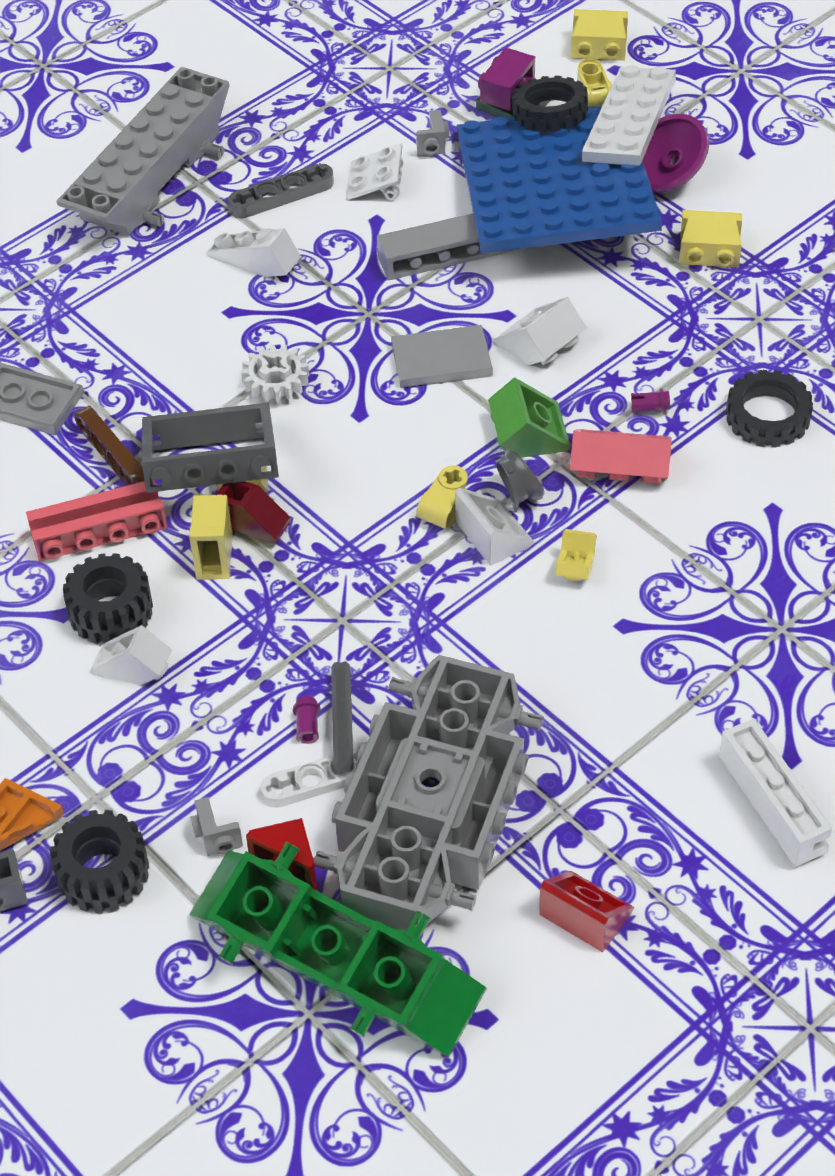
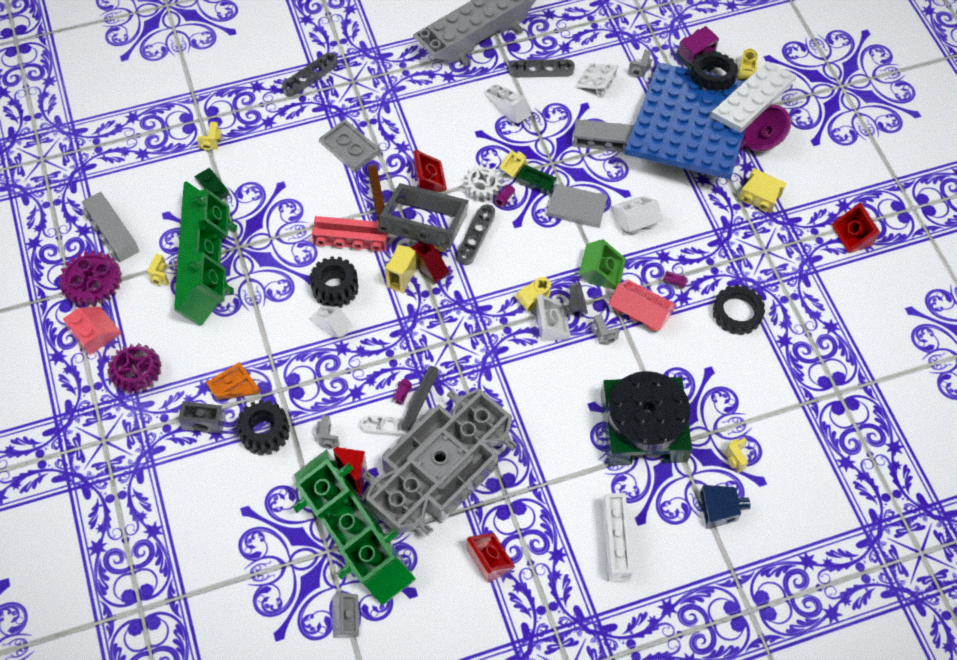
camera: 20 degrees right, 10 degrees up
(176, 388) = (429, 172): none -> red slope
(304, 451) = (473, 233): none -> dark grey beam
(310, 331) = (513, 163): none -> light yellow bracket
(318, 386) = (502, 198): none -> magenta pin
(358, 341) = (536, 179): none -> dark green plate
(392, 1100) = (345, 615): none -> light grey slope
(576, 555) = (586, 356): light yellow bracket -> none
(581, 513) = (603, 334): none -> light grey bracket
(599, 34) = (769, 33): light yellow hips -> none
(719, 598) = (636, 432): none -> black piece

